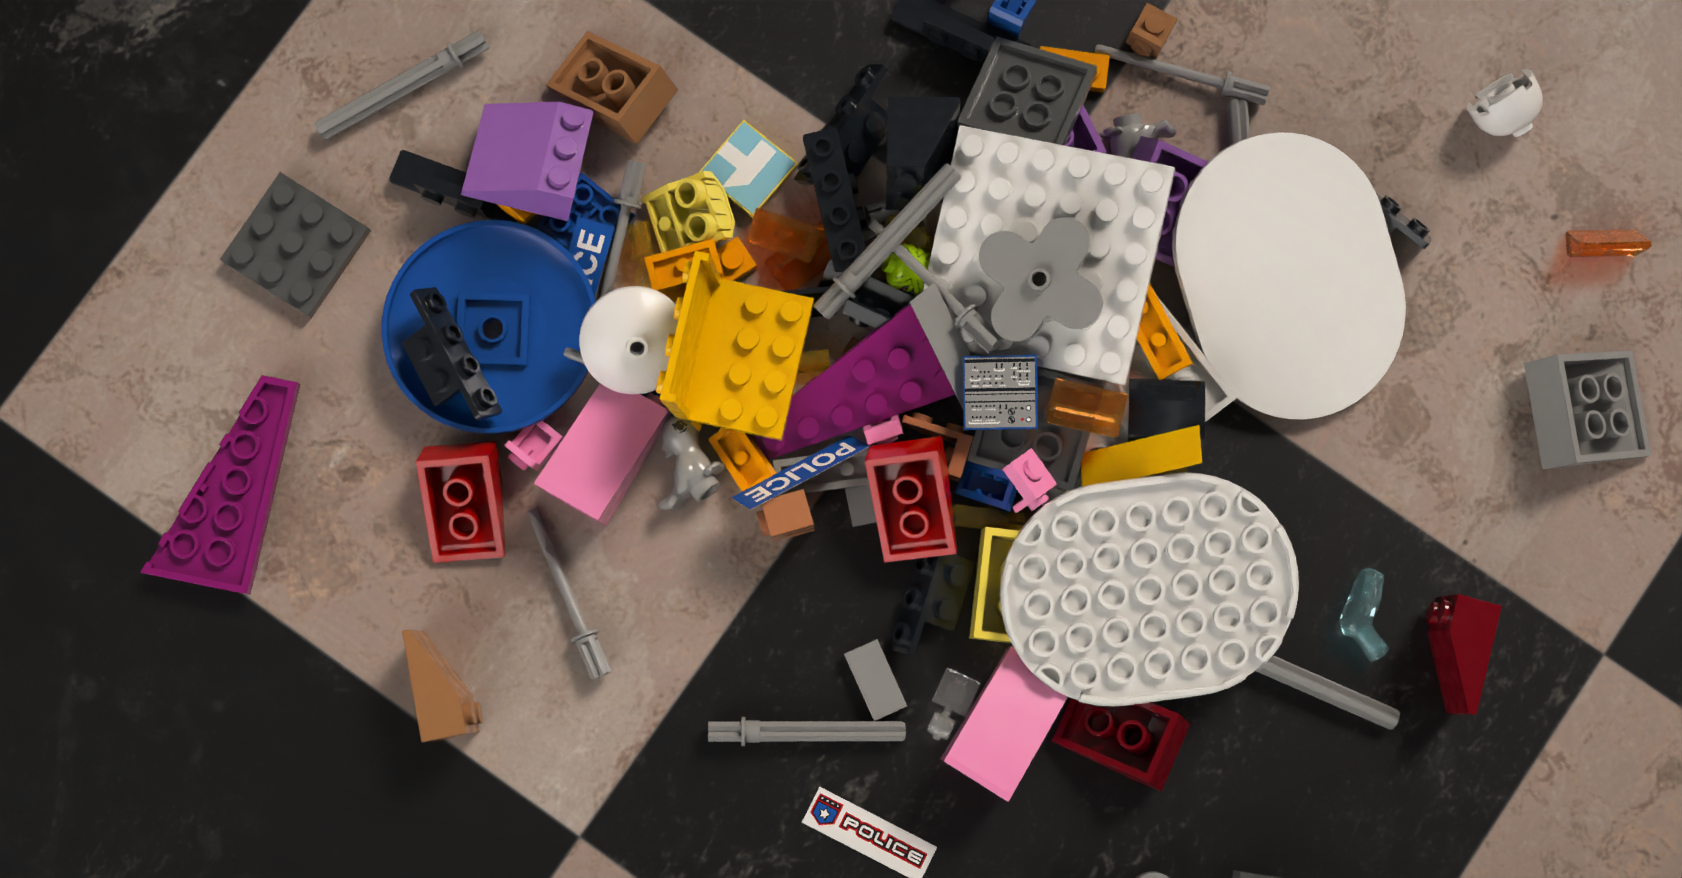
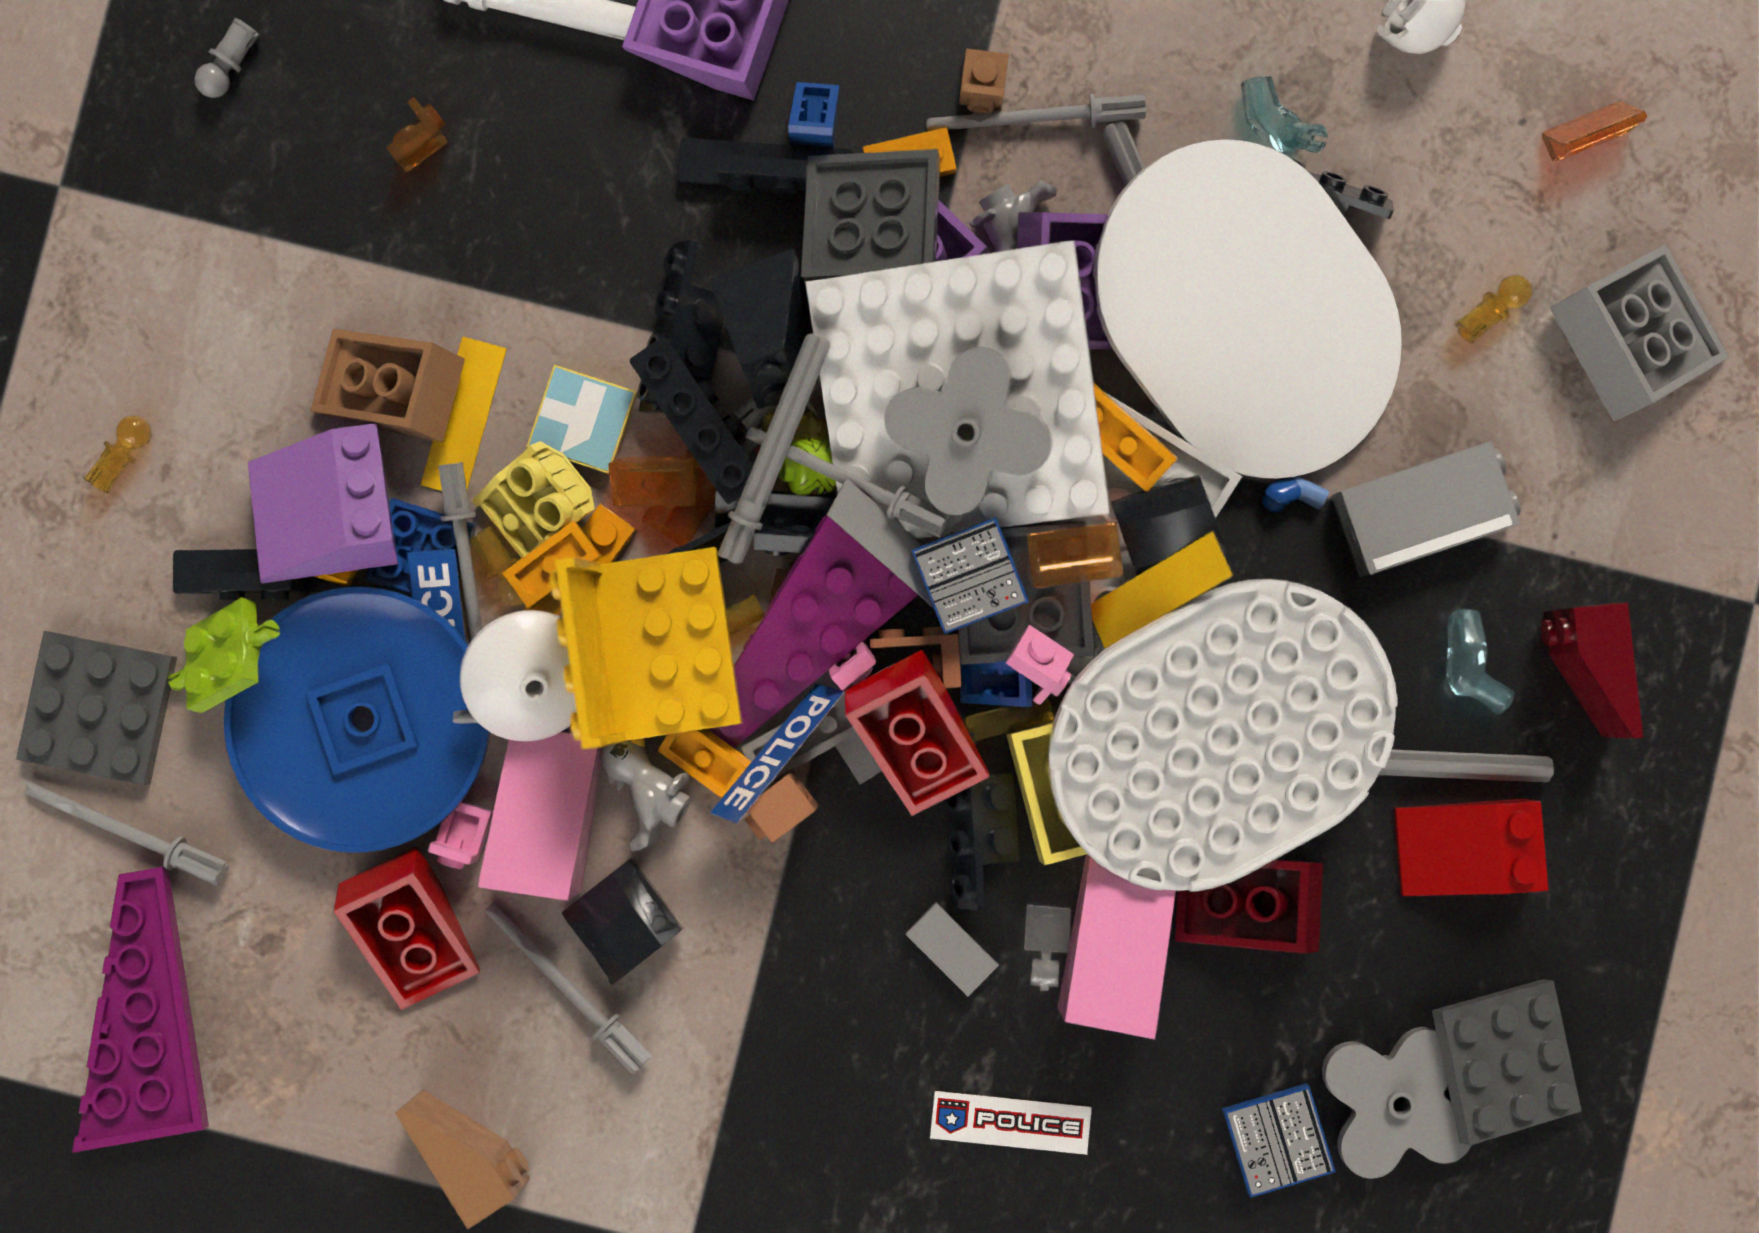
camera: 15 degrees left, 5 degrees up
(311, 377) = (176, 854): none -> light grey piece
(402, 85) = (144, 475): light grey axle -> none
(406, 51) = (132, 433): none -> clear yellow pin
(408, 239) = (222, 655): none -> lime plate
(445, 359) = (320, 778): black bracket -> none
(629, 558) = (622, 920): none -> black slope
(664, 131) = (468, 412): none -> yellow sticker
(787, 731) = (895, 1037): light grey axle -> none
(1272, 427) = (1291, 489): none -> blue arm
(1310, 757) = (1471, 848): none -> red slope
(1362, 145) = (1275, 123): none -> clear light blue arm
(1372, 480) = (1427, 508): none -> light grey panel
(1499, 342) = (1511, 293): none -> clear yellow pin

